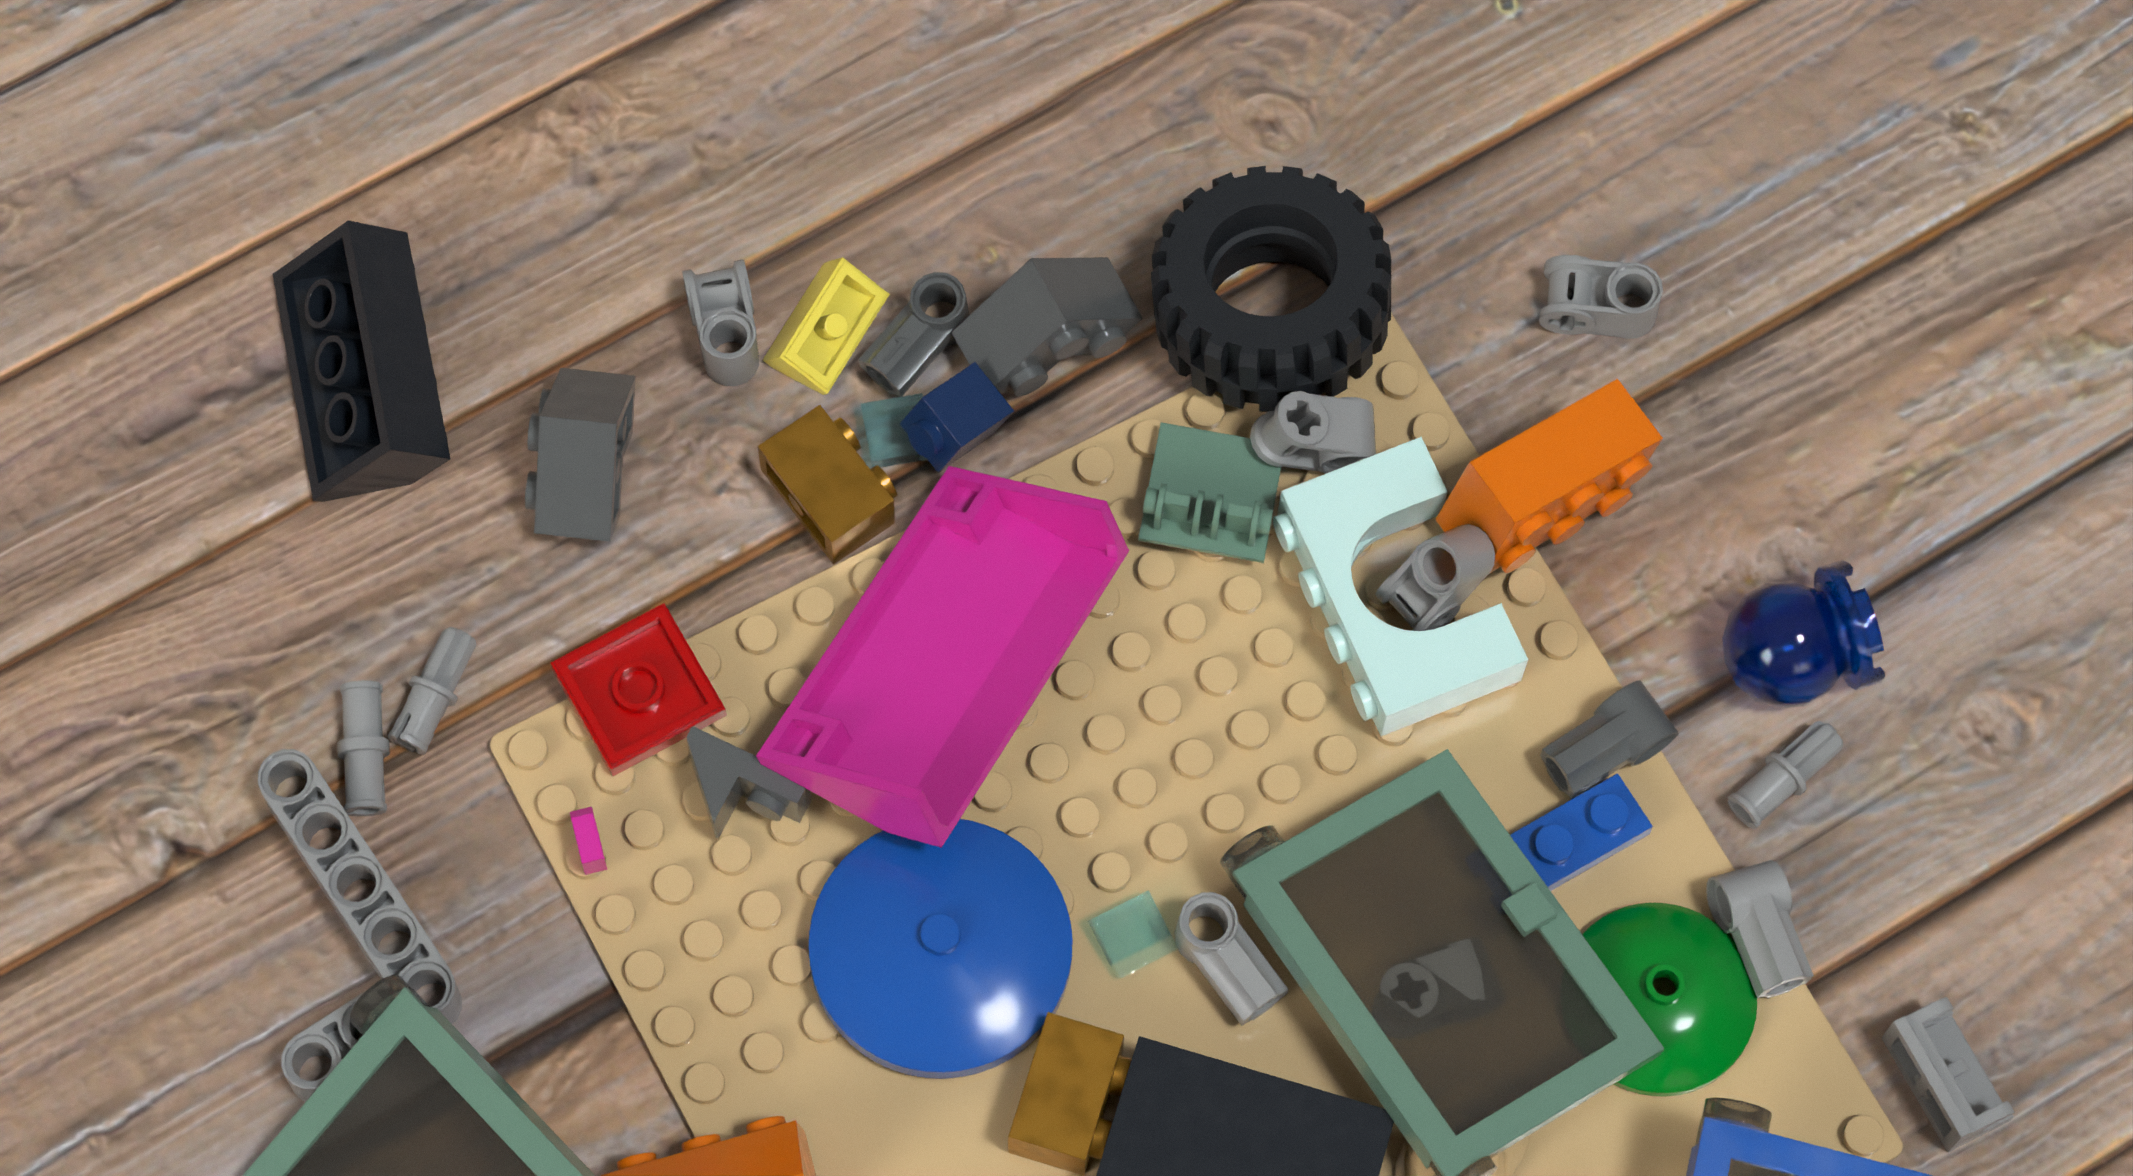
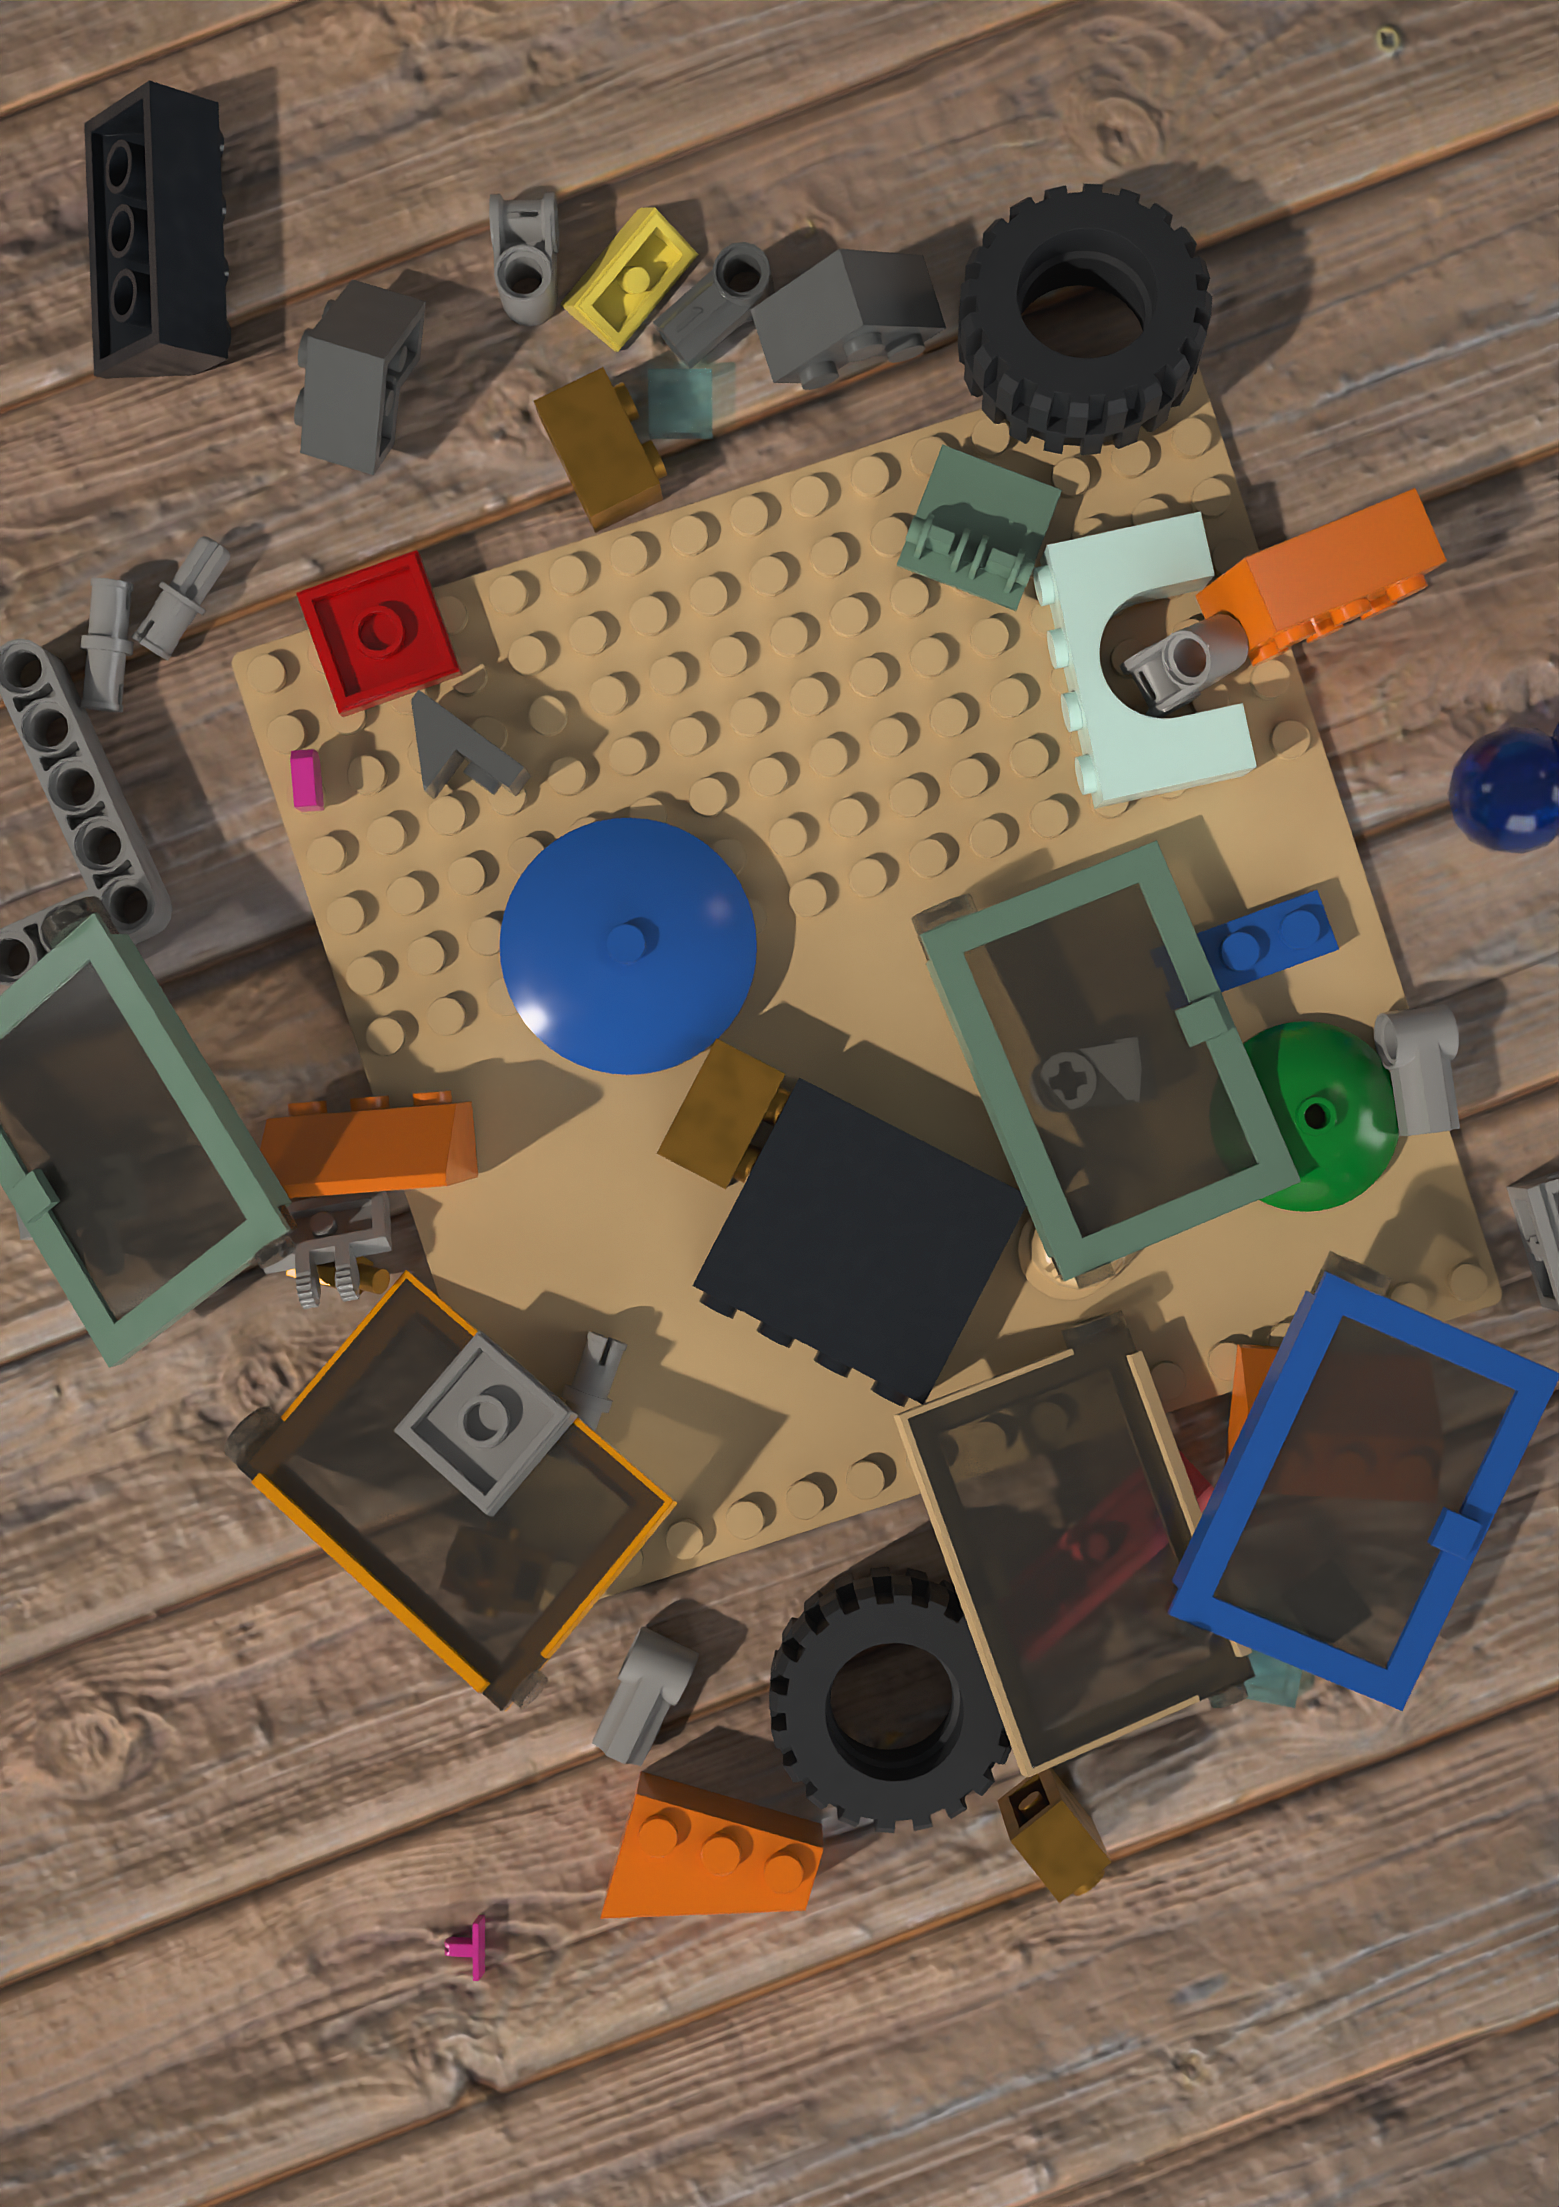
camera: 10 degrees right, 20 degrees up
(947, 651) = (683, 654): dark pink slope -> none
(956, 417) = (738, 403): dark blue brick -> none
(1132, 934) = (815, 965): clear light blue tile -> none
(1231, 962) = (904, 1016): light grey piece -> none
(1315, 432) = (1096, 486): light grey piece -> none
(1595, 297) = (1407, 384): light grey piece -> none
(1622, 731) = (1326, 851): dark grey piece -> none
(1785, 774) = (1480, 915): light grey axle -> none

